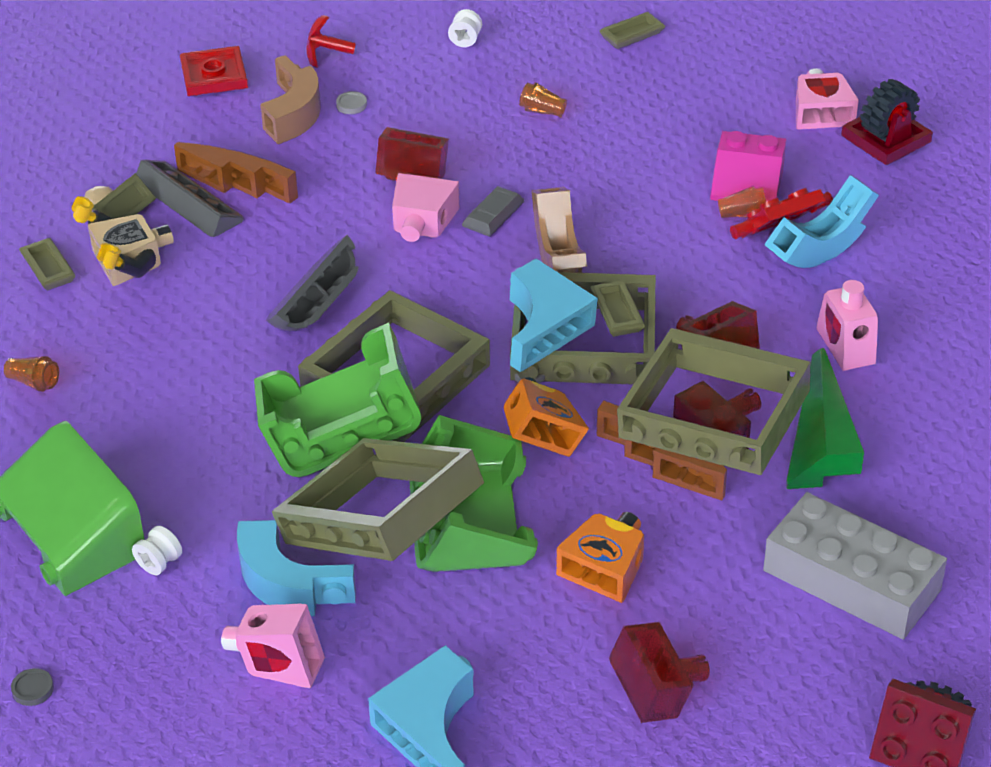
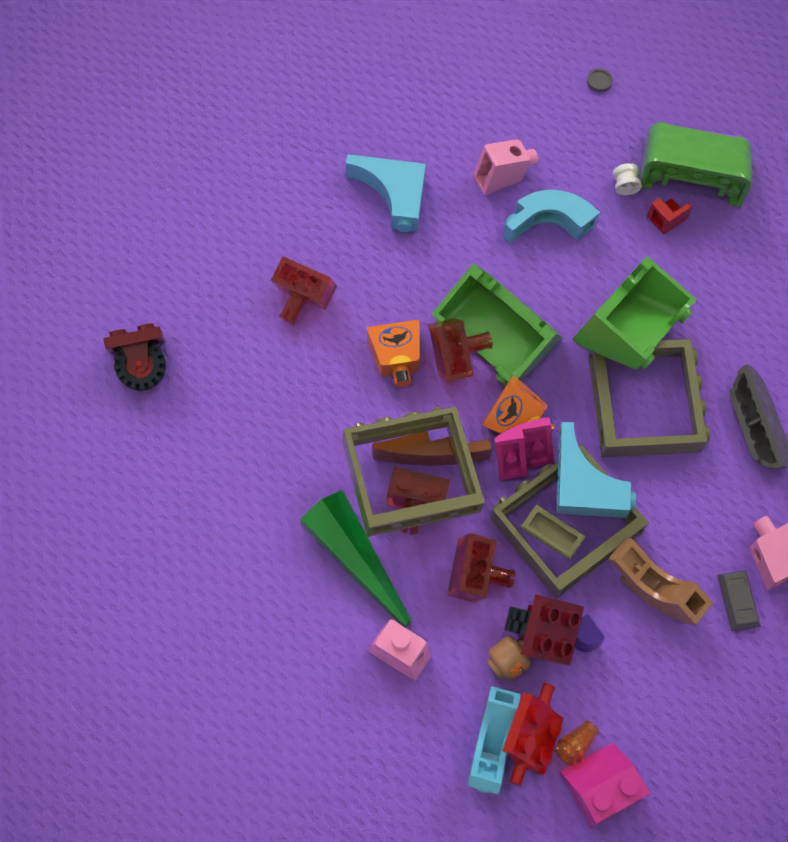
camera: 135 degrees right, 25 degrees up
(159, 492) = (668, 214): none -> panel
(311, 513) = (544, 225): olive window -> none
(546, 497) = (453, 348): none -> clear red brick
(579, 380) = (523, 448): none -> dark pink slope
(660, 252) = (589, 635): none -> dark purple brick
(702, 257) = (546, 628): none -> dark red plate
(747, 274) = (507, 658): none -> medium nougat head
(854, 565) = (252, 442): light grey brick -> none

